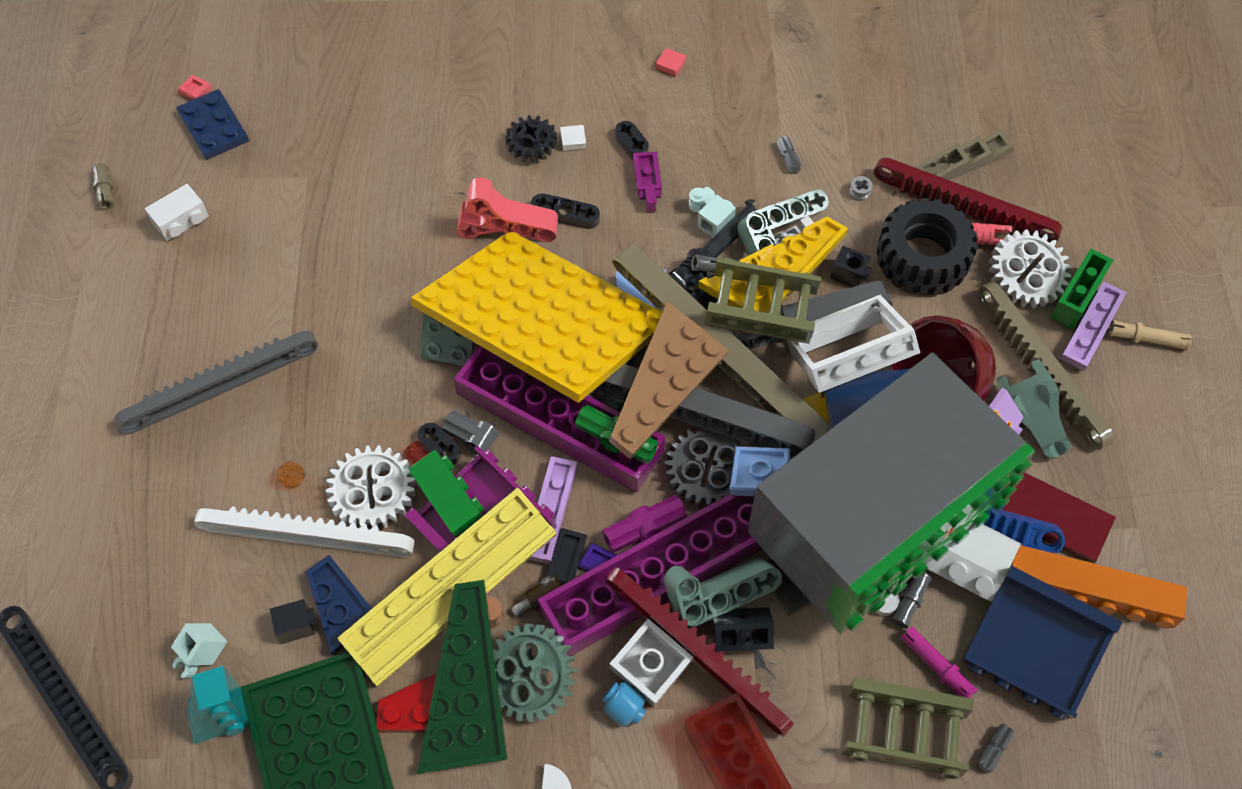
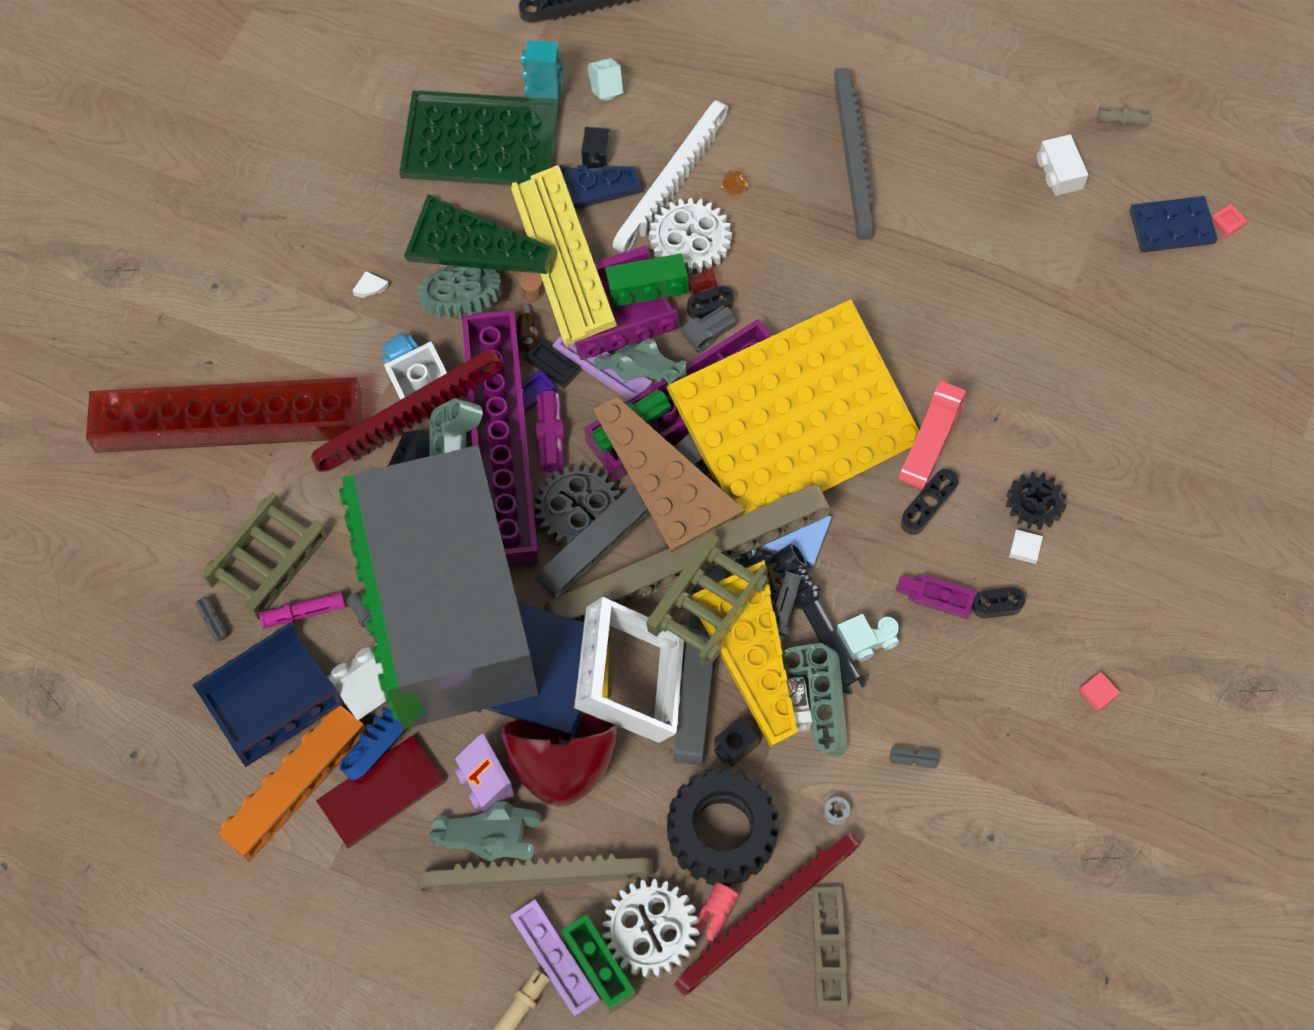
camera: 115 degrees right, 5 degrees up
(407, 709) = (485, 202): red wing -> none
(543, 461) = (642, 360): none -> sand green animal
(753, 466) = (539, 530): light blue tile -> none

